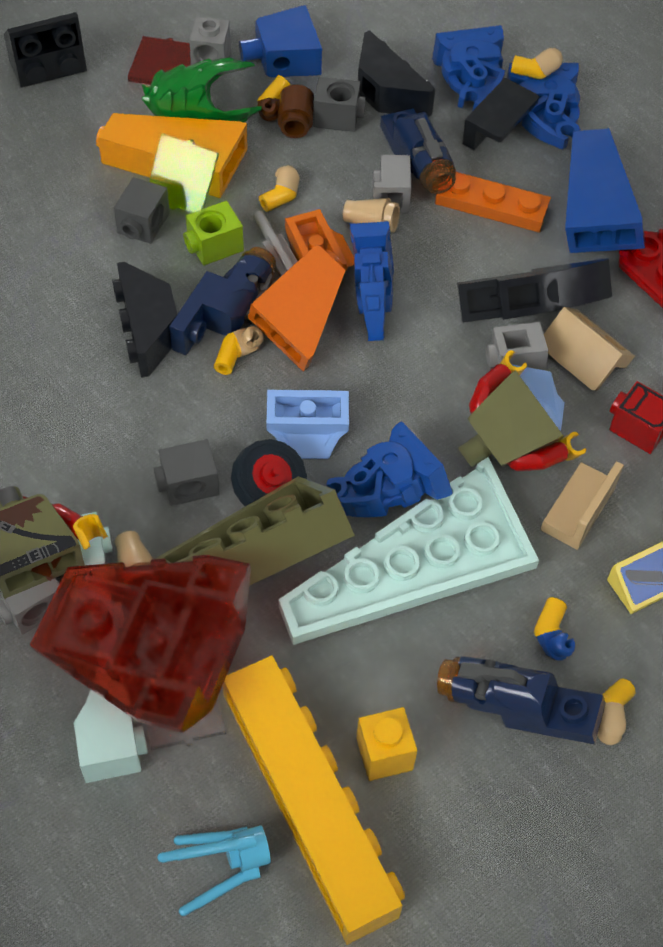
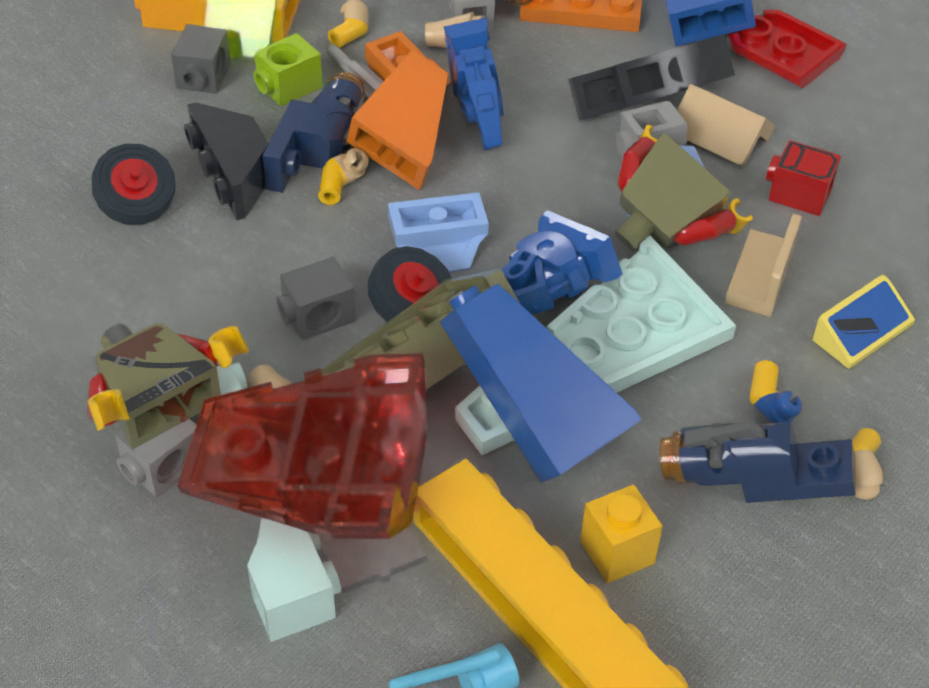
camera: 10 degrees left, 10 degrees down
(58, 333) = (133, 184): none -> black wheel
(348, 603) = (534, 382): none -> blue slope

